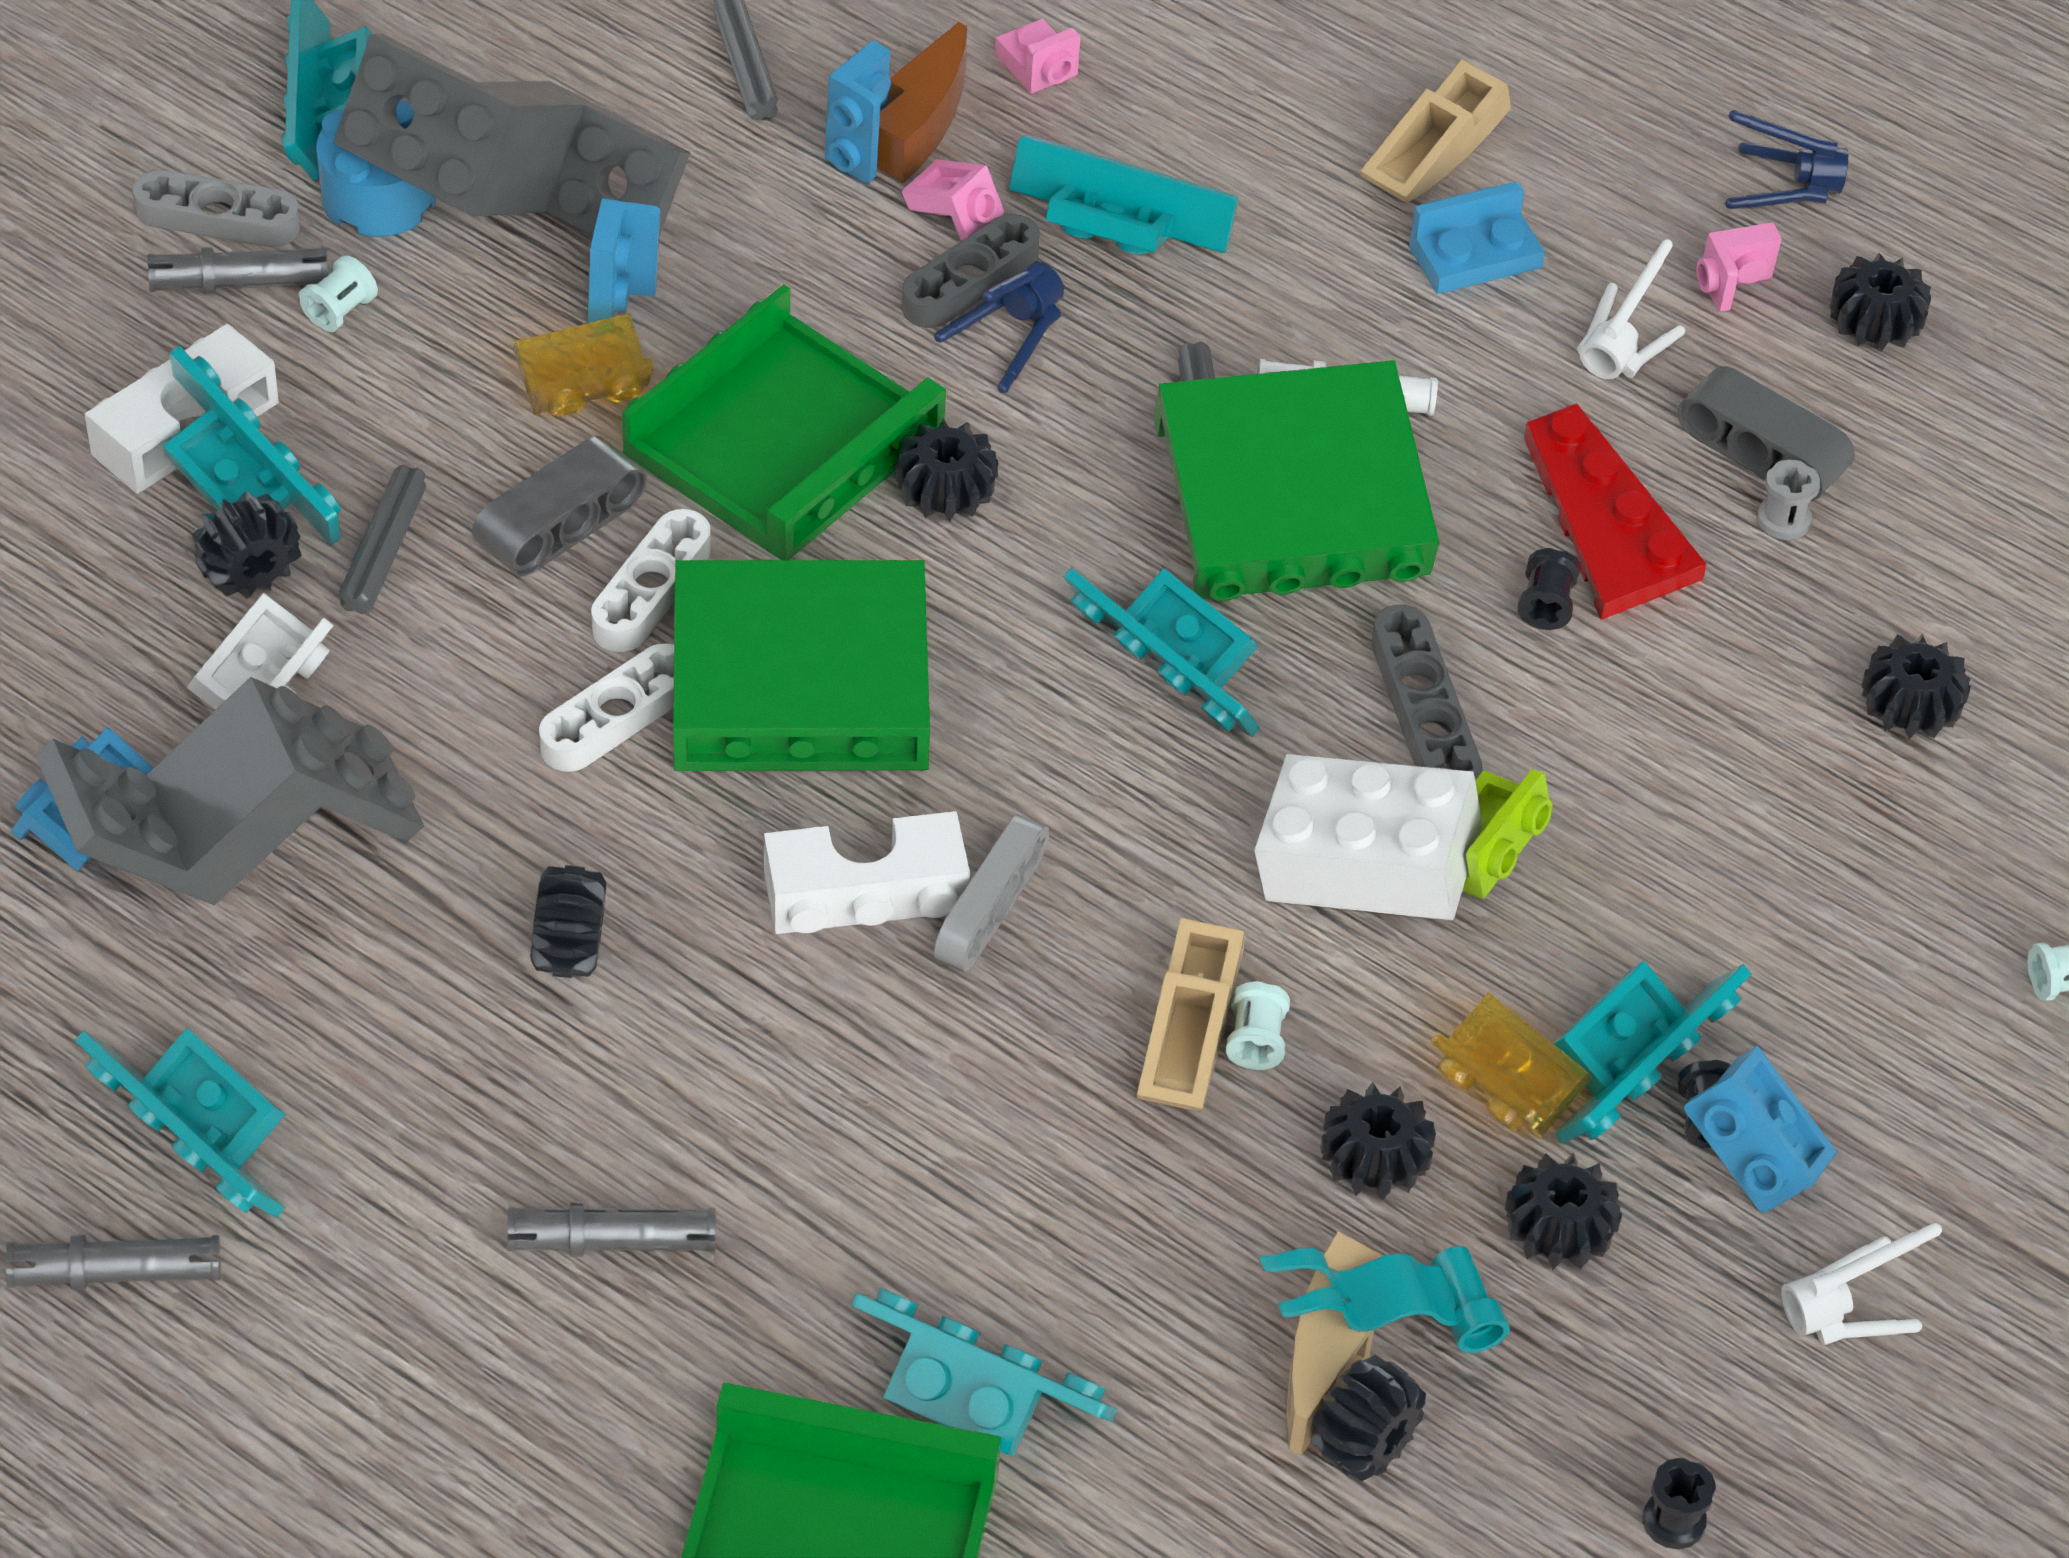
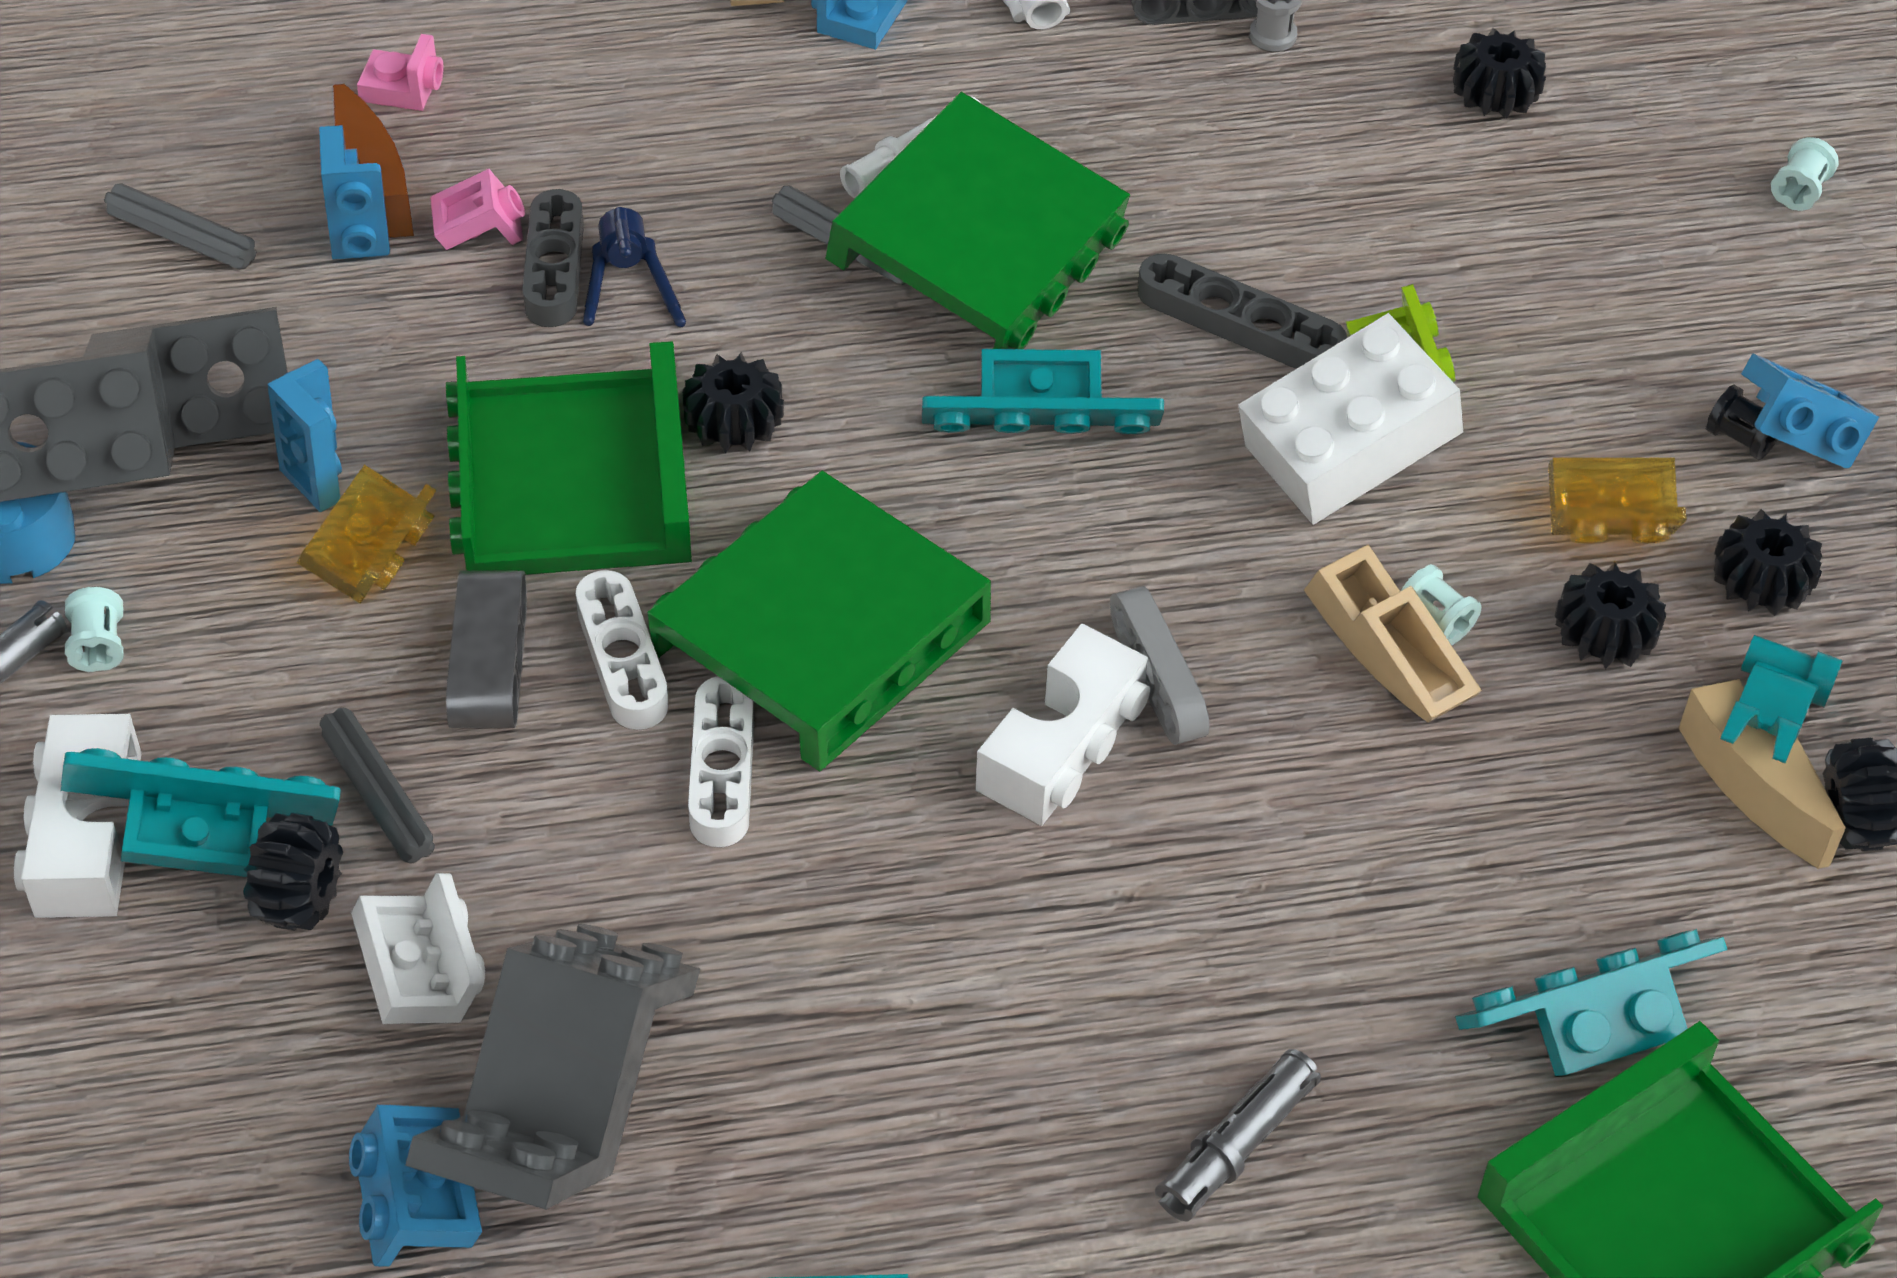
camera: 45 degrees left, 0 degrees up
(568, 921) = (923, 937): black gear -> none
(1120, 200) = (597, 132): teal bracket -> none
(1547, 597) = (1216, 179): black bush -> none
(1617, 527) = (1197, 110): red wing -> none
(1631, 1034) = (1659, 415): teal bracket -> none

